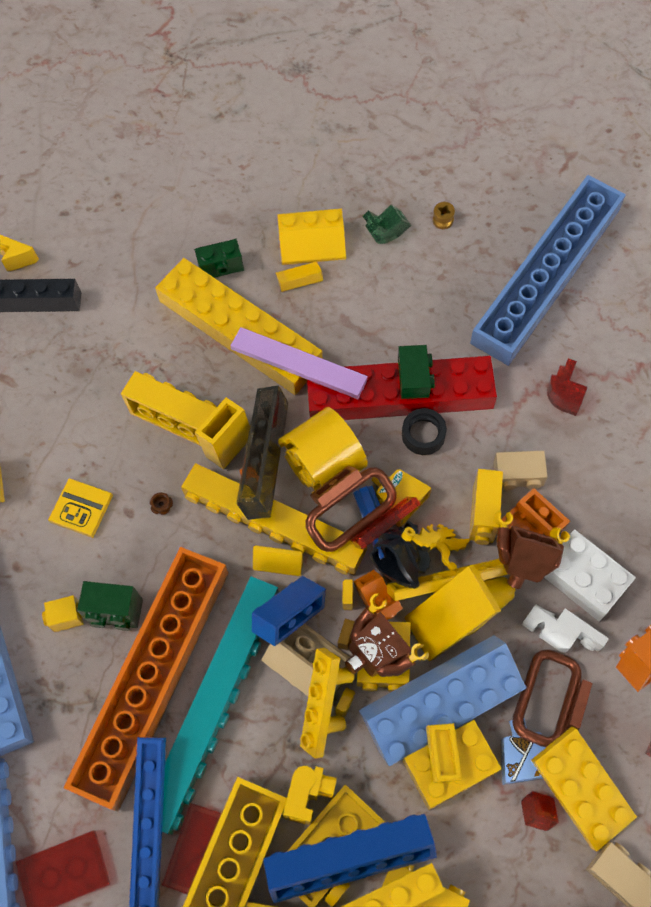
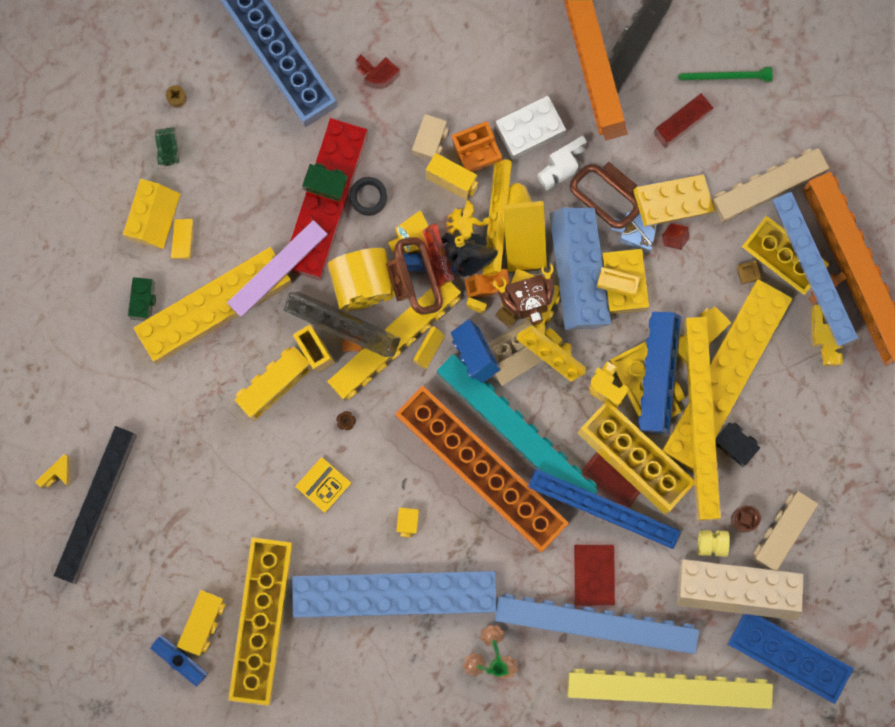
camera: 75 degrees left, 15 degrees up
(110, 605) = (418, 481): dark green brick -> none
(528, 553) = (504, 162): copper torso -> none

